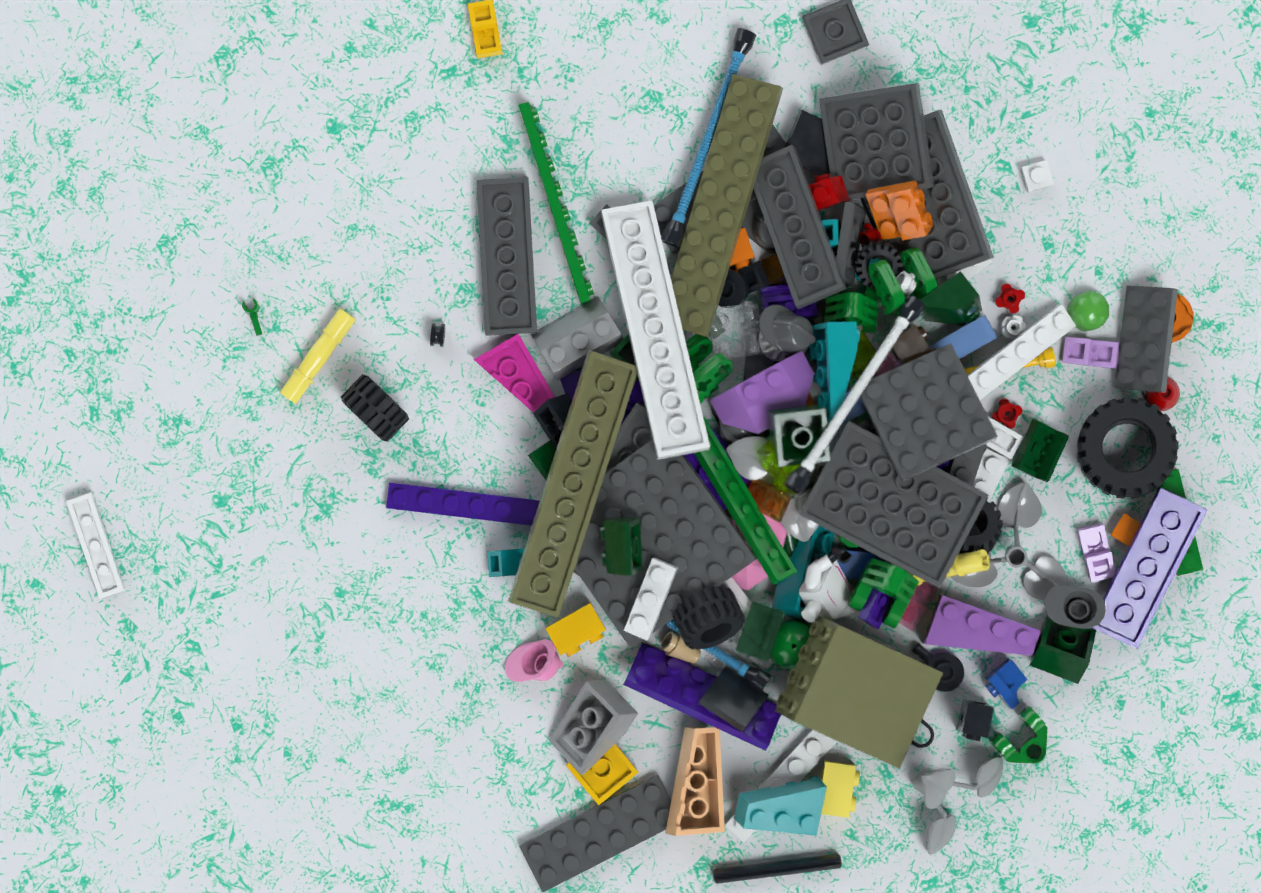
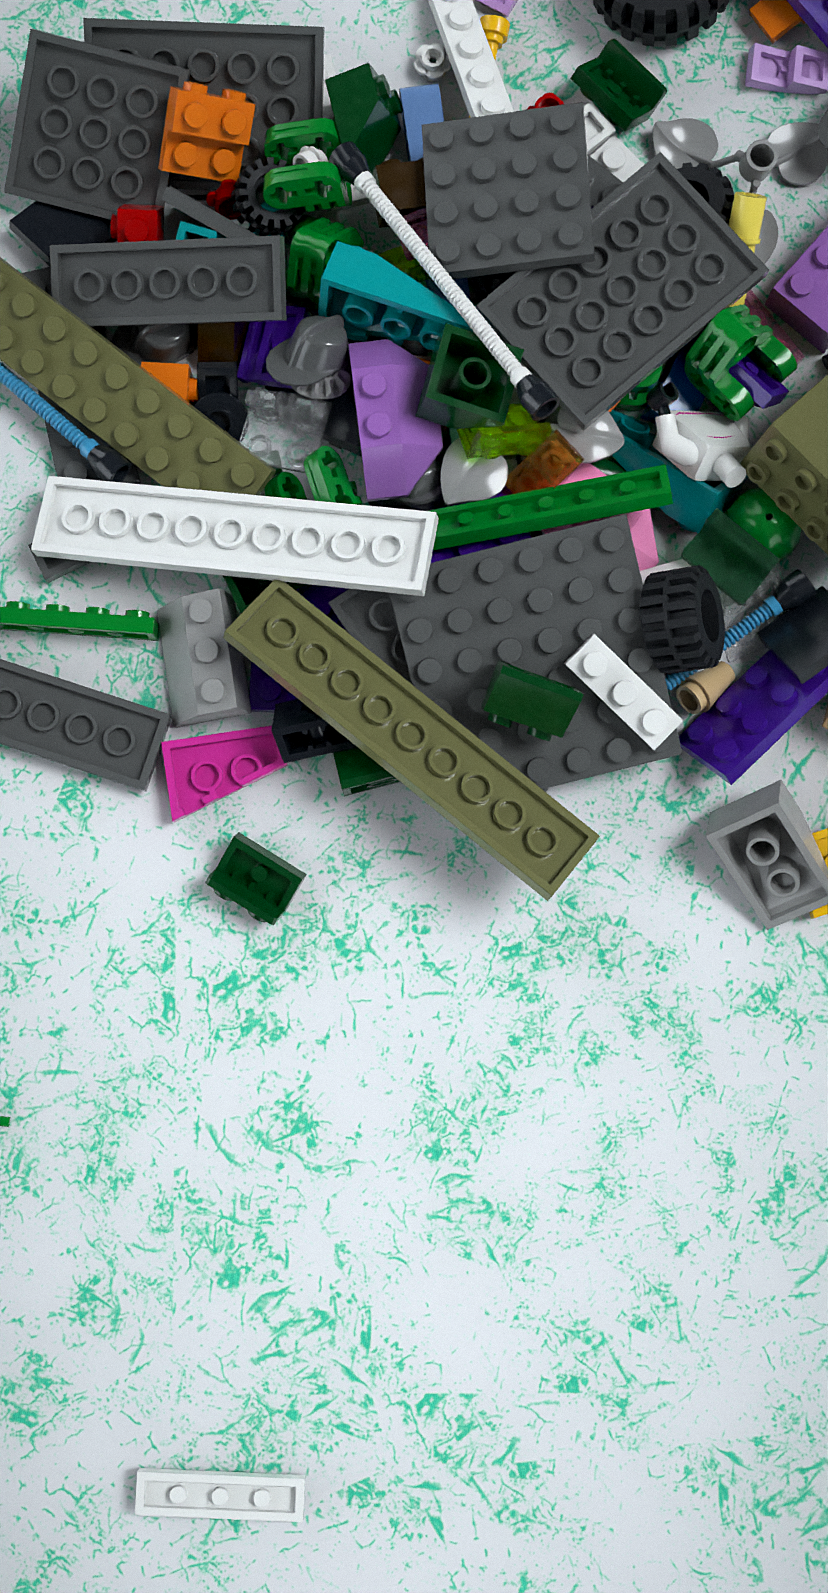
camera: 70 degrees left, 5 degrees down
(317, 356) = (74, 1046): light yellow piece -> none
(374, 408) = (182, 990): black tyre -> none
(437, 335) = (116, 859): black bush -> none
(458, 423) = (255, 879): none -> dark green bracket
(461, 504) = (377, 918): dark purple plate -> none
(504, 562) = (485, 887): teal brick -> none
(533, 661) = (645, 906): bright pink piece -> none
(576, 629) = (623, 824): yellow brick -> none
(1002, 300) = (390, 61): red plate -> none

